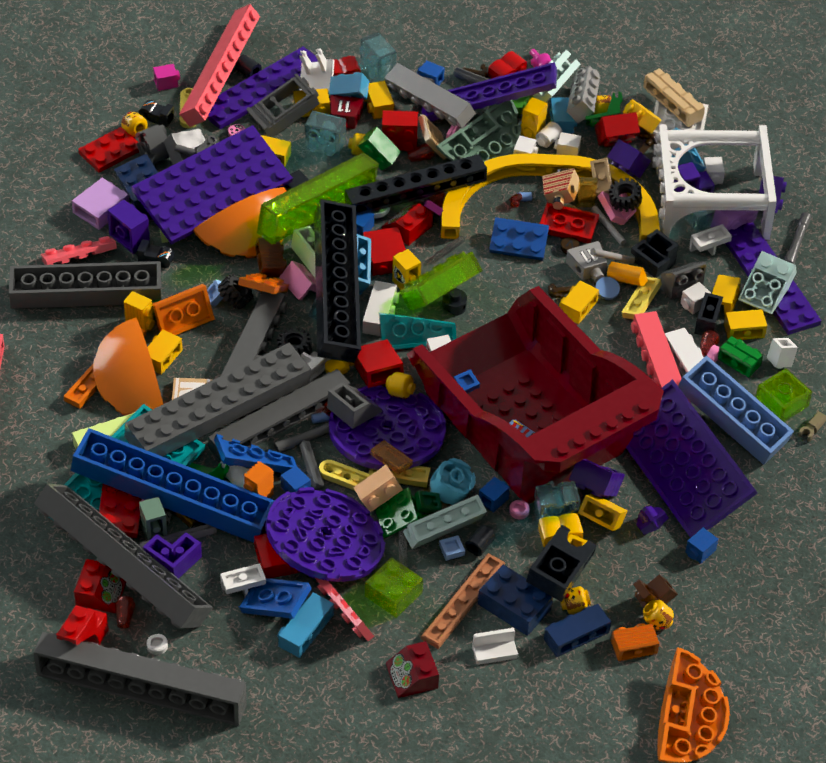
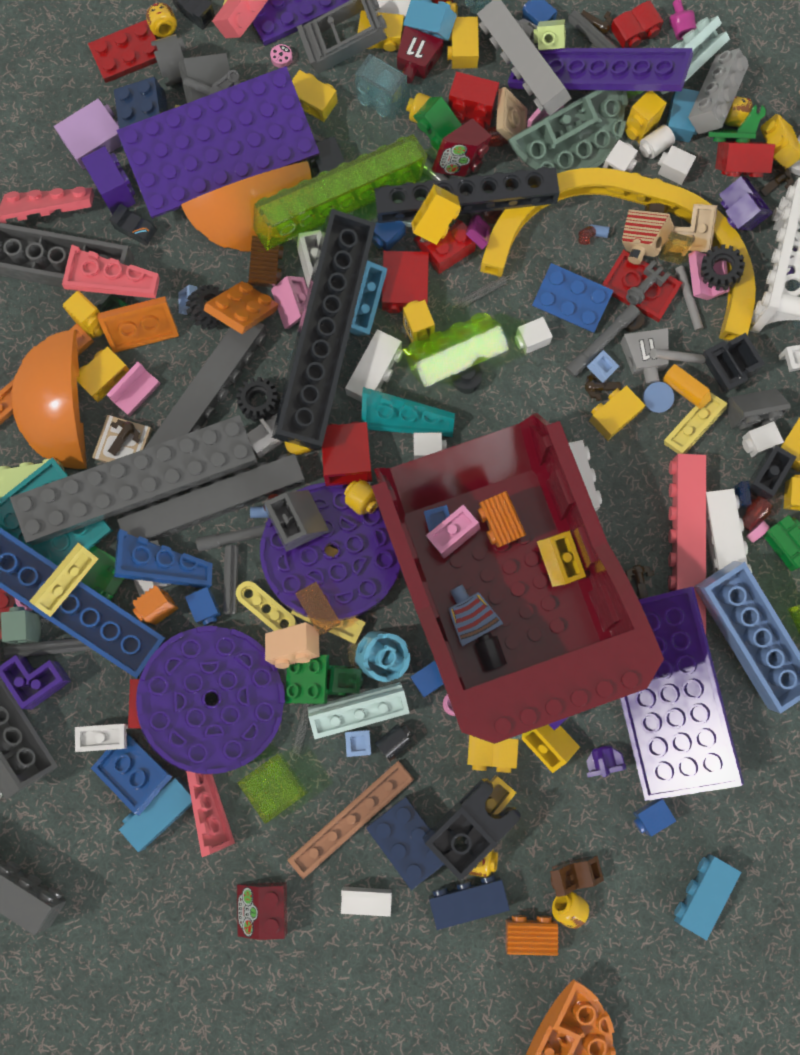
camera: 20 degrees right, 30 degrees up
(152, 280) = (97, 274): none -> coral wing
(187, 465) = (64, 580): none -> light yellow plate
(189, 357) = (133, 389): none -> bright pink panel
(195, 381) = (127, 428): none -> dark brown piece
(398, 196) = (436, 214): none -> yellow brick
(402, 158) = (462, 150): none -> dark red slope
(446, 80) = (550, 34): none -> yellowish green brick
(483, 384) = (453, 531): none -> bright pink panel
(497, 266) = (533, 335): none -> white brick
(515, 372) = (501, 519): none -> orange brick
(557, 276) = (602, 366): none -> light blue plate
(562, 245) = (620, 323): none -> dark grey piece
(567, 224) = (635, 295): none -> dark grey hinge
(569, 388) = (561, 559): none -> yellow brick
(694, 331) = (742, 490): none -> clear blue tile
(760, 586) = (706, 896): none -> dark azure brick

